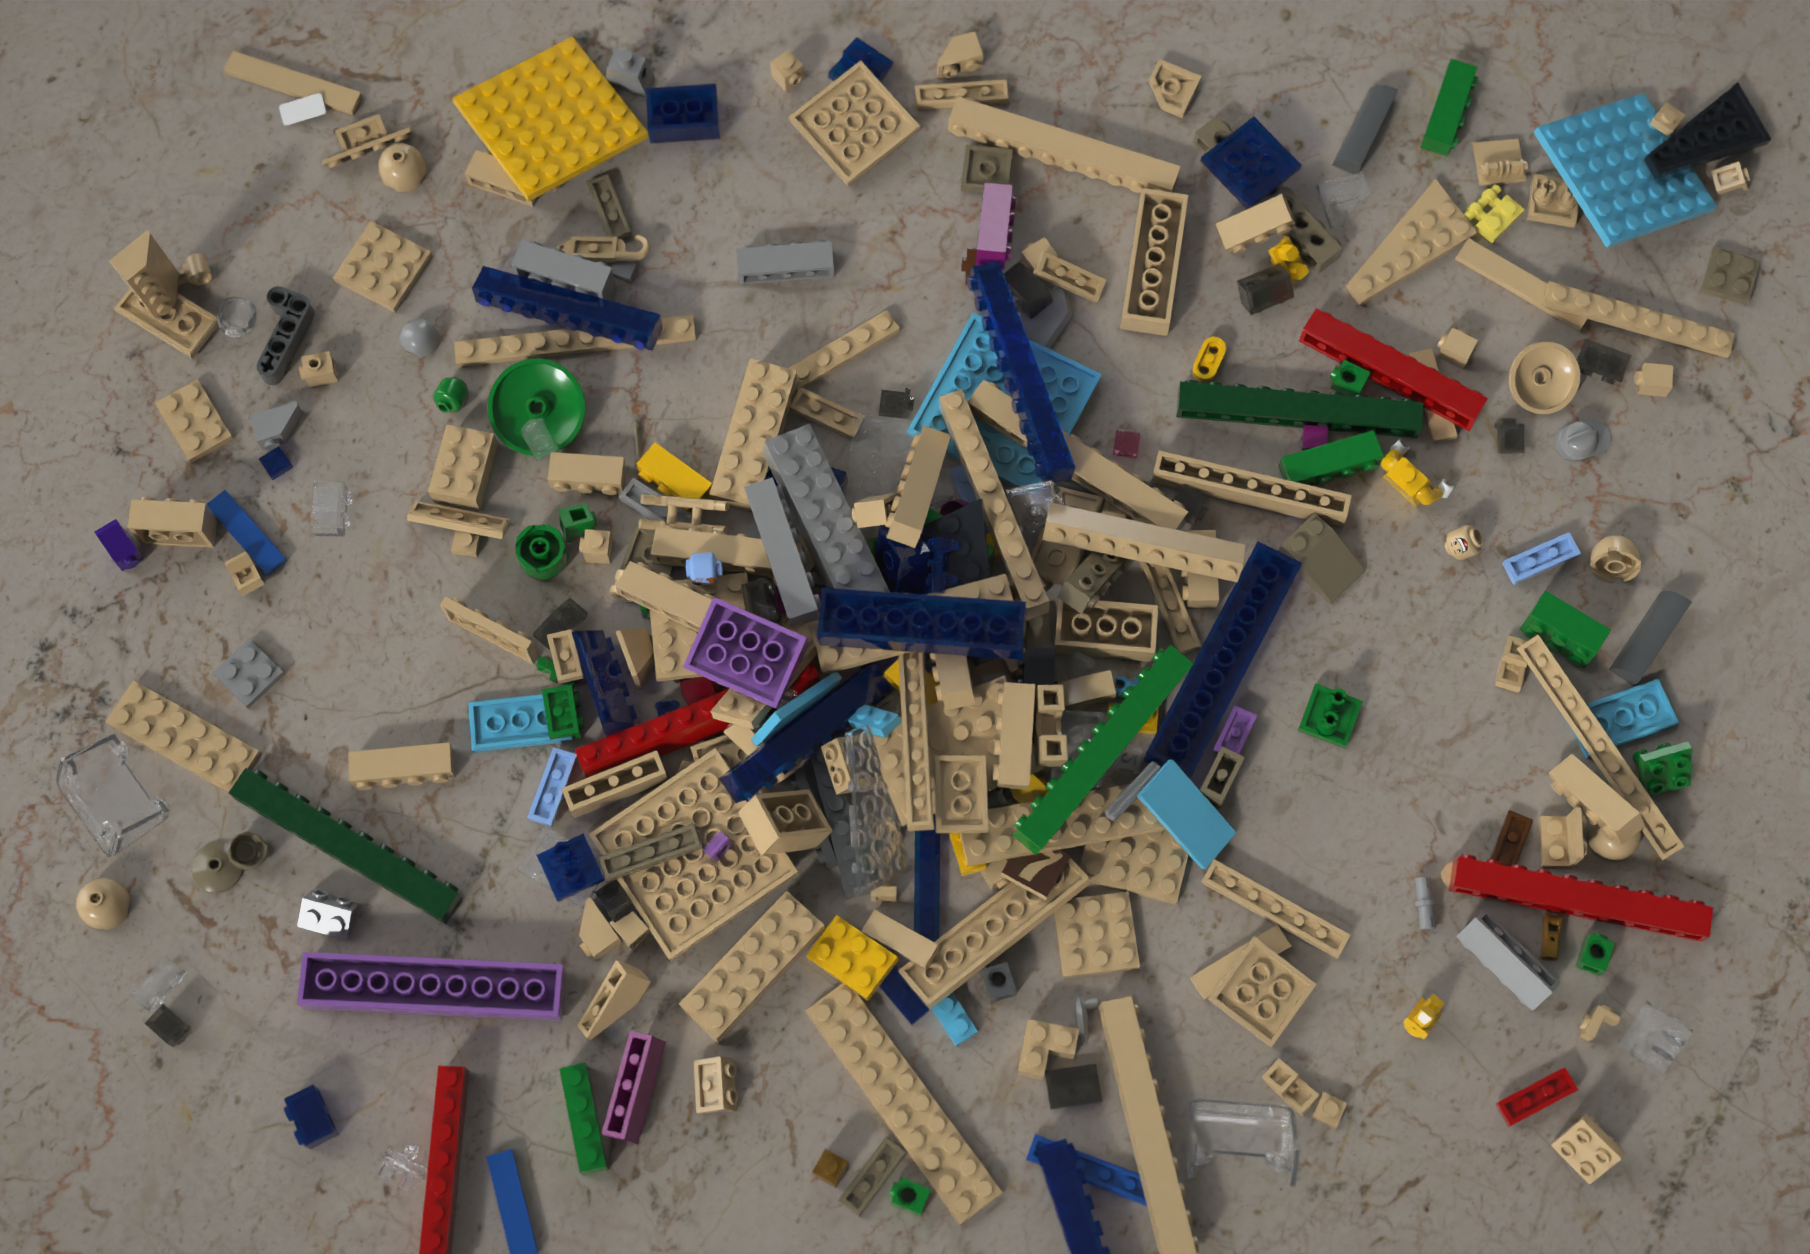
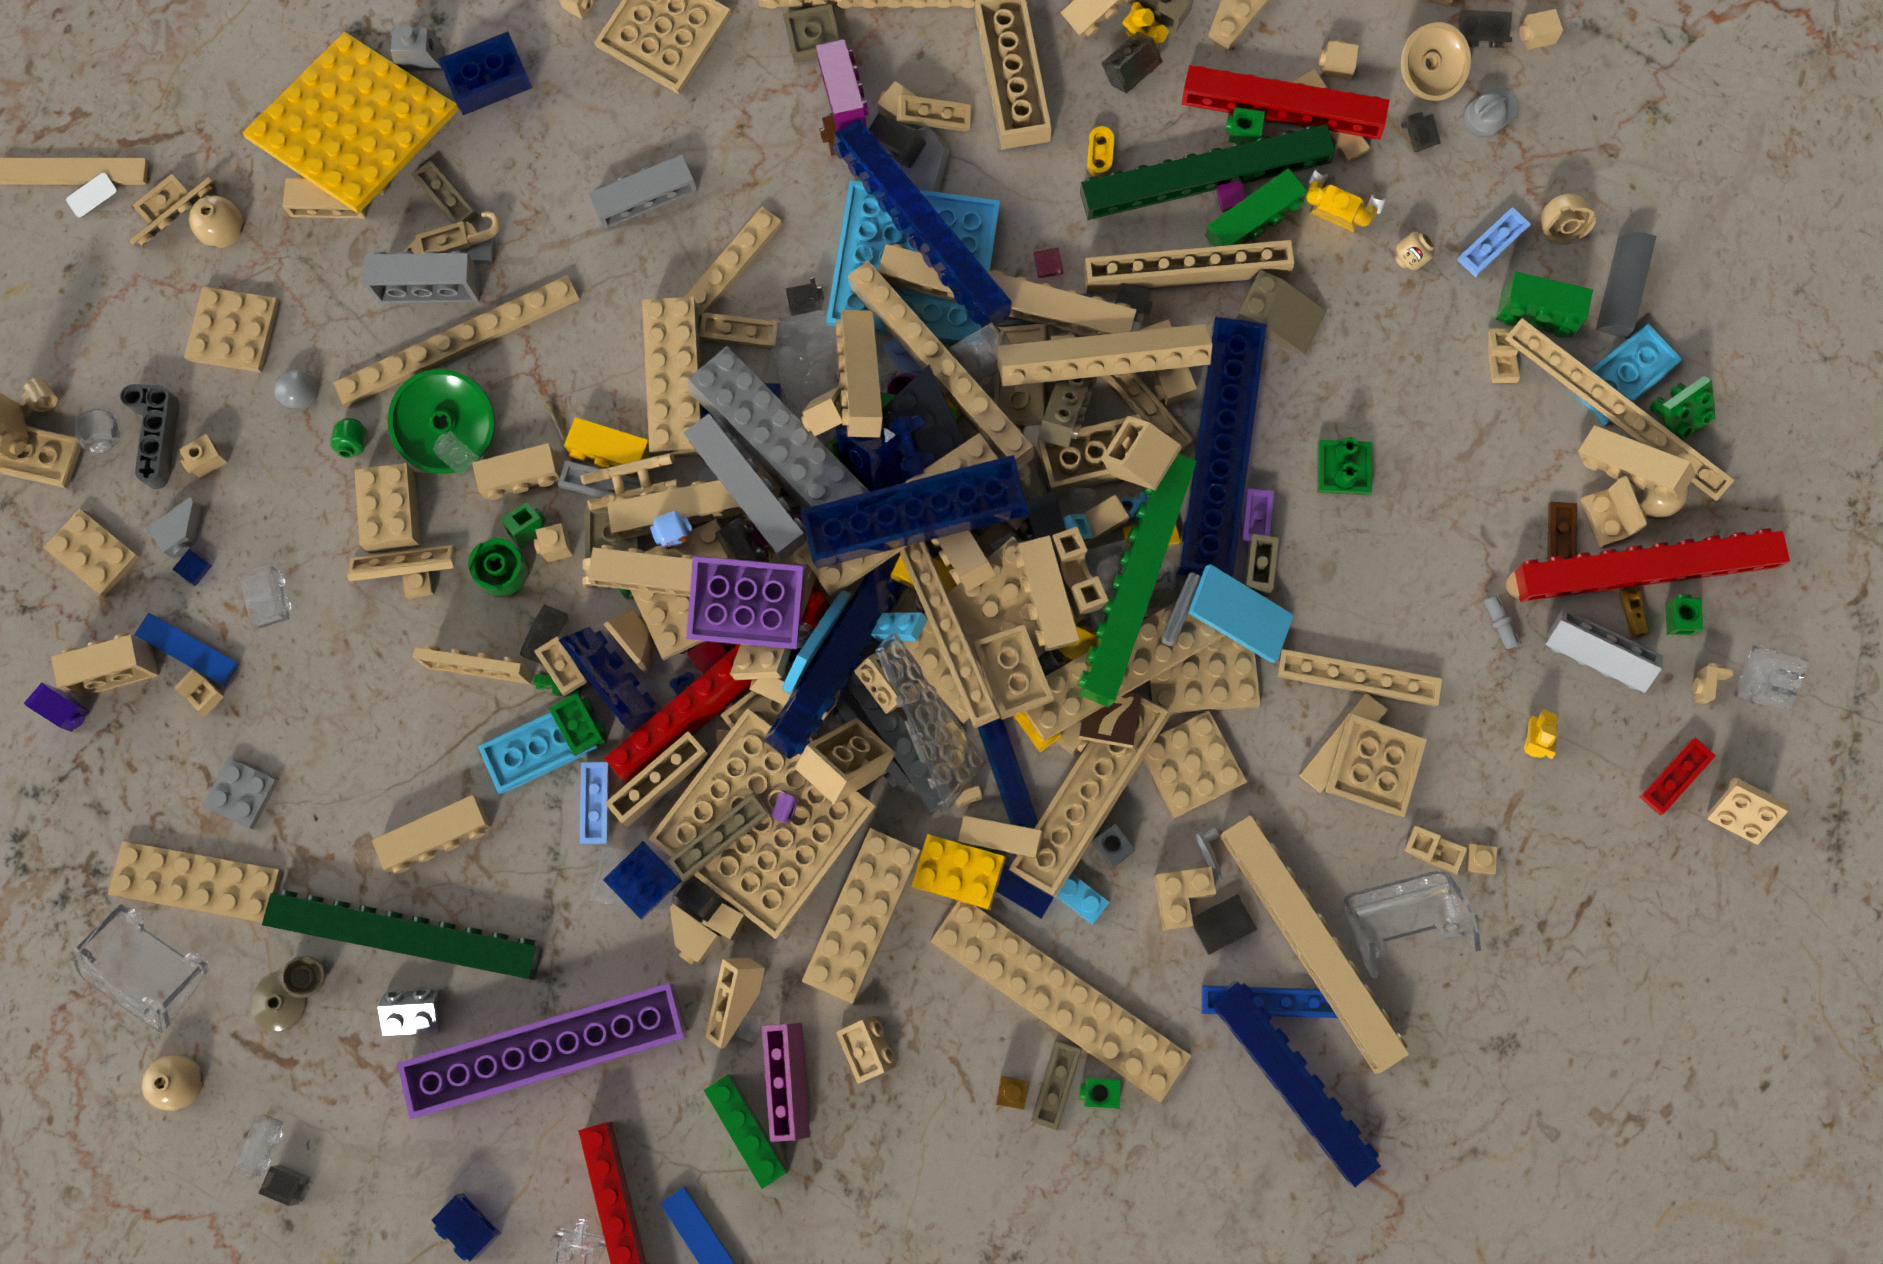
camera: 15 degrees left, 5 degrees up
(567, 308) = (437, 310): clear blue brick -> none
(1070, 687) = (1081, 522): none -> medium azure plate
(1143, 640) = (1140, 453): none -> tan slope

